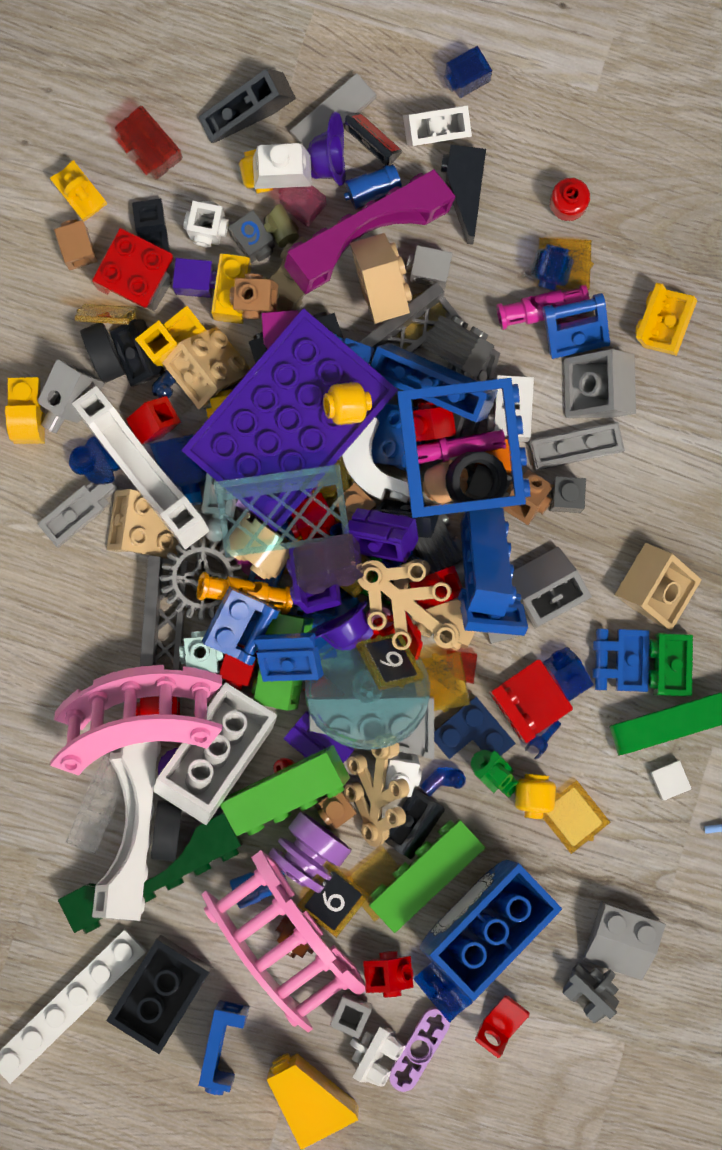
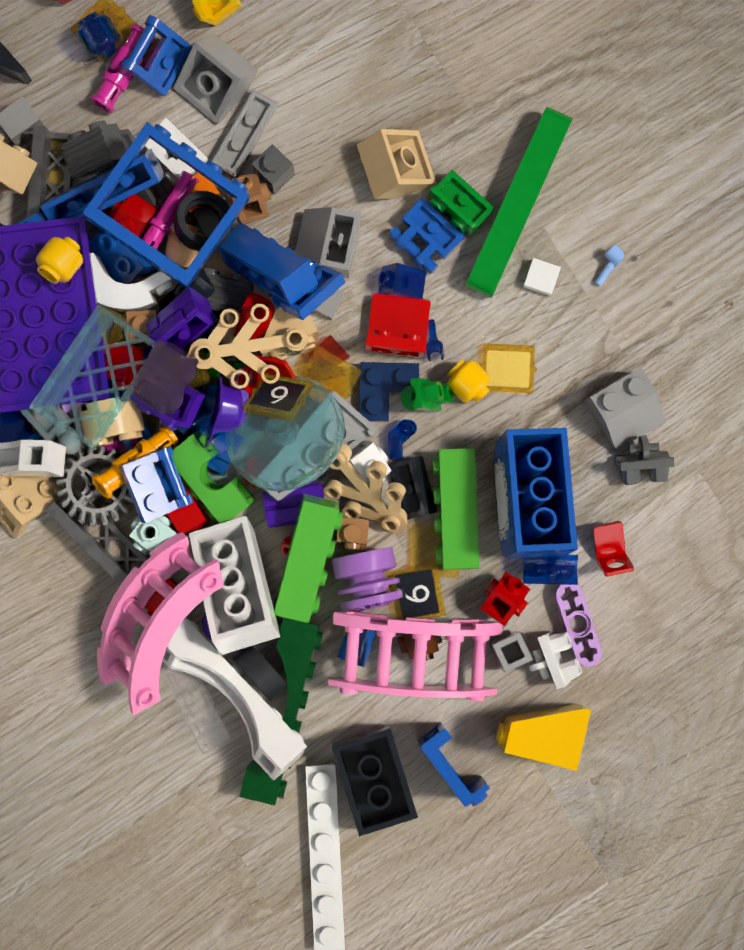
camera: 55 degrees left, 0 degrees up
(288, 657) = (210, 468): blue plate -> none

